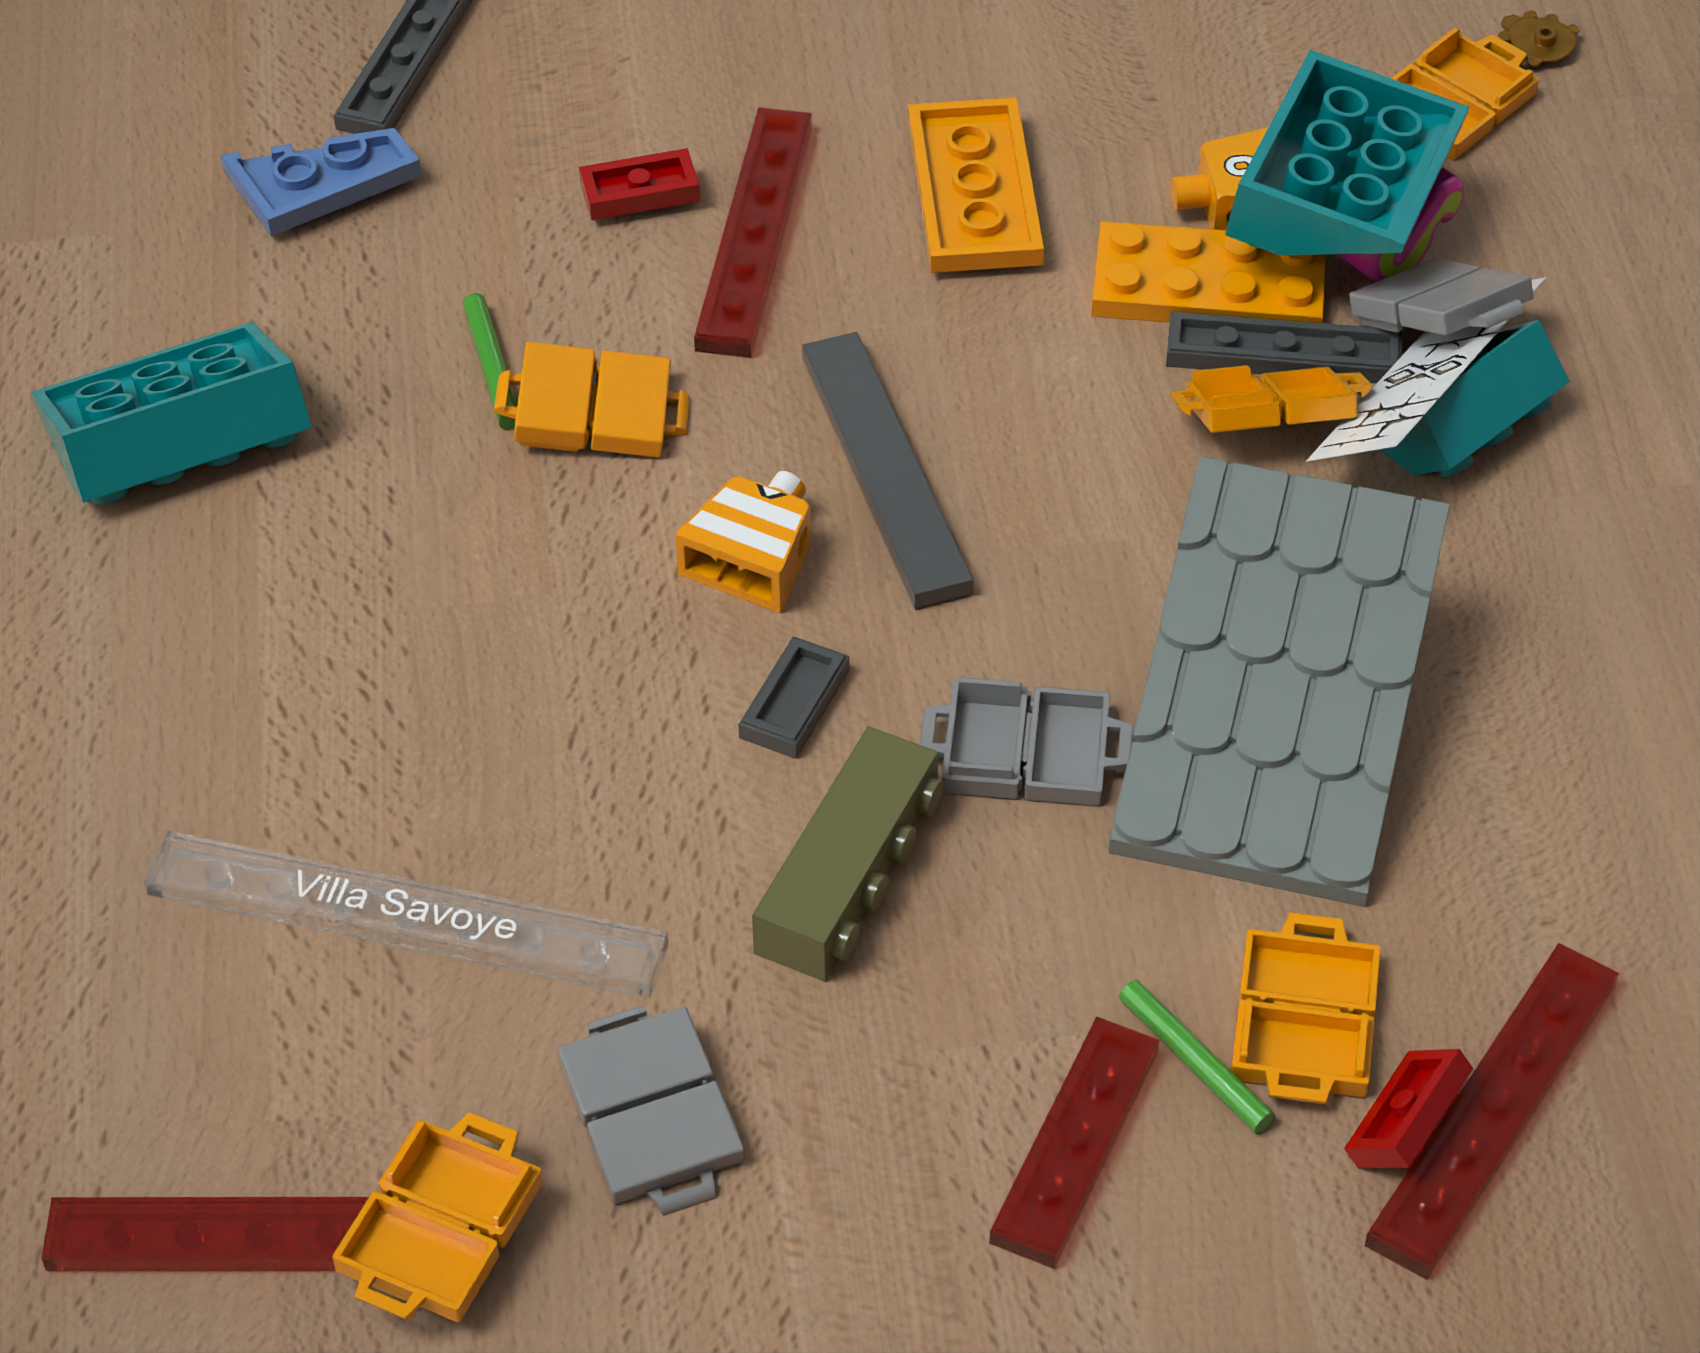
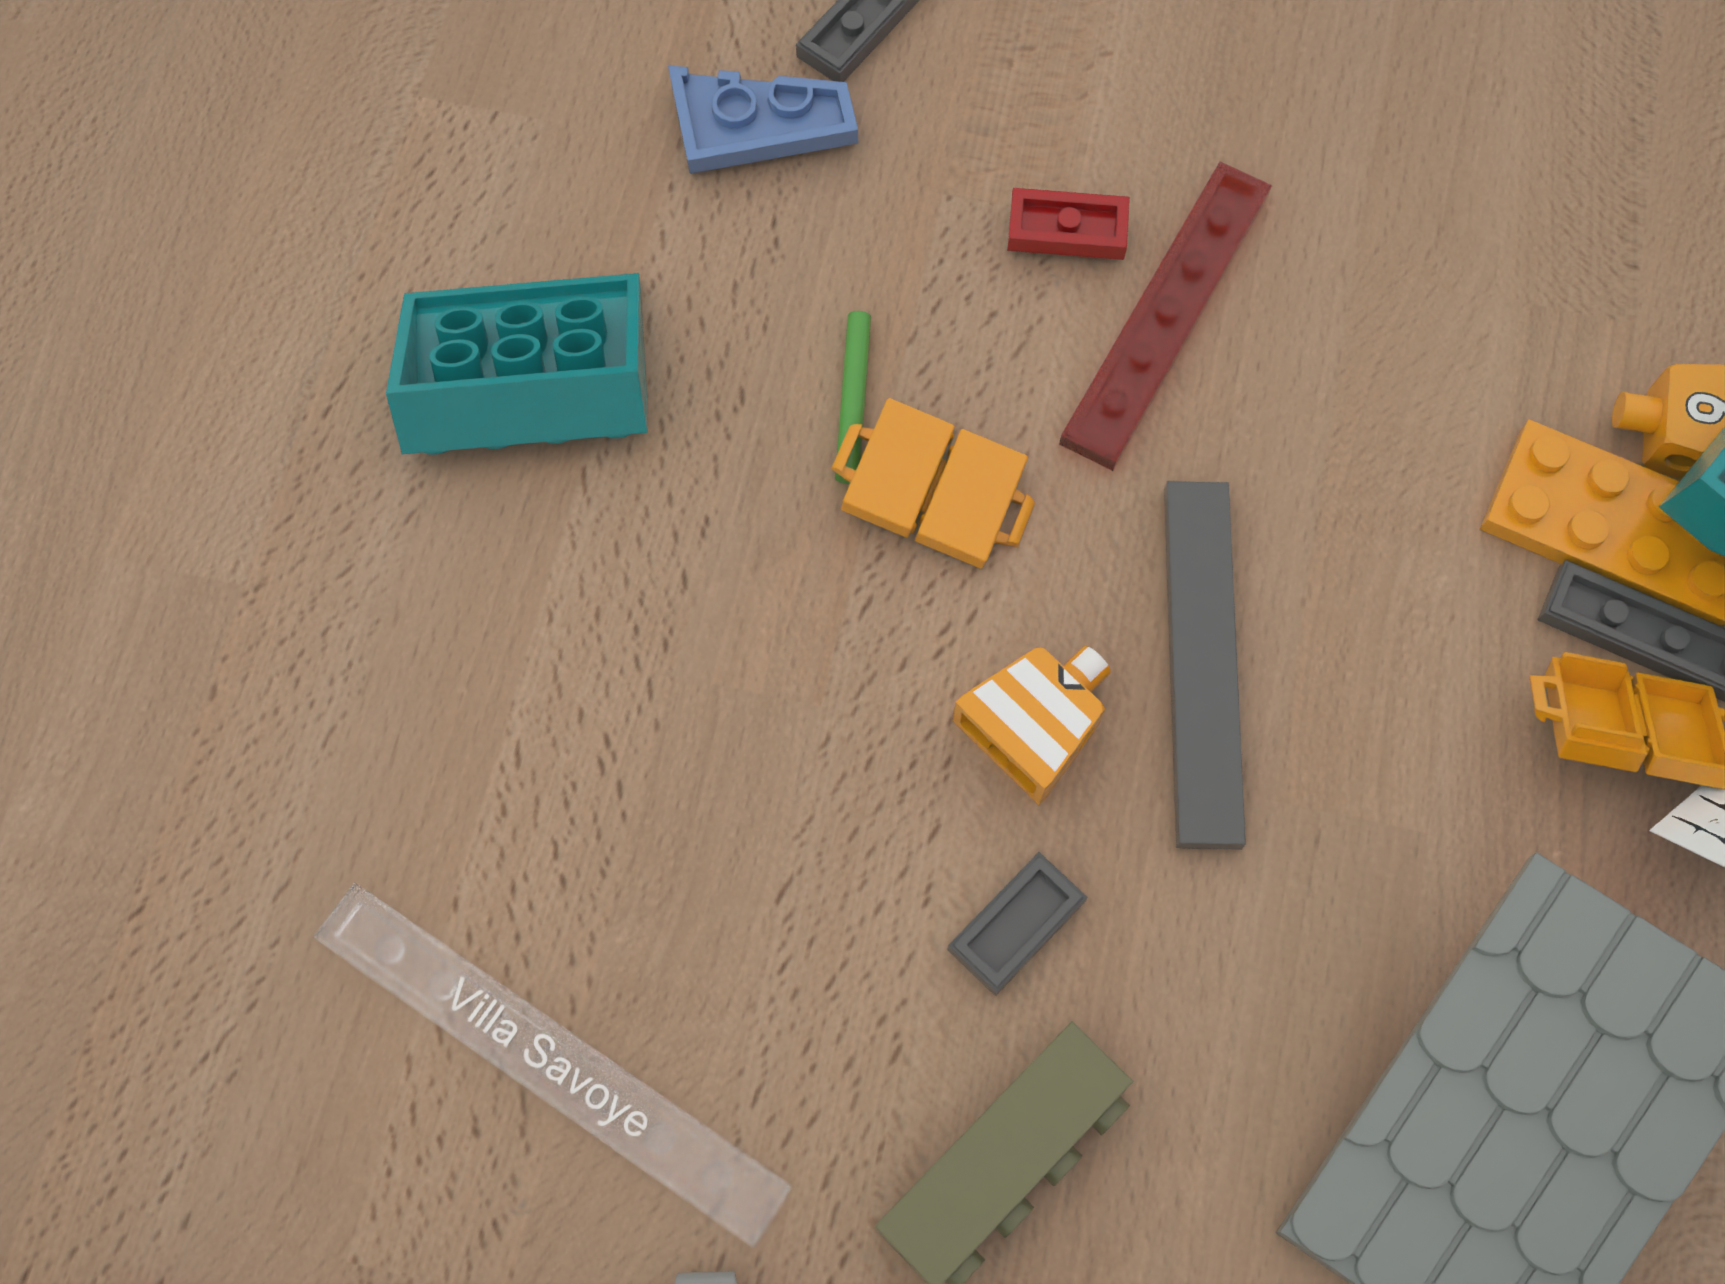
camera: 20 degrees right, 20 degrees up
(975, 185) = (1411, 331): light orange plate -> none
(1058, 739) = (1265, 1078): light grey piece -> none

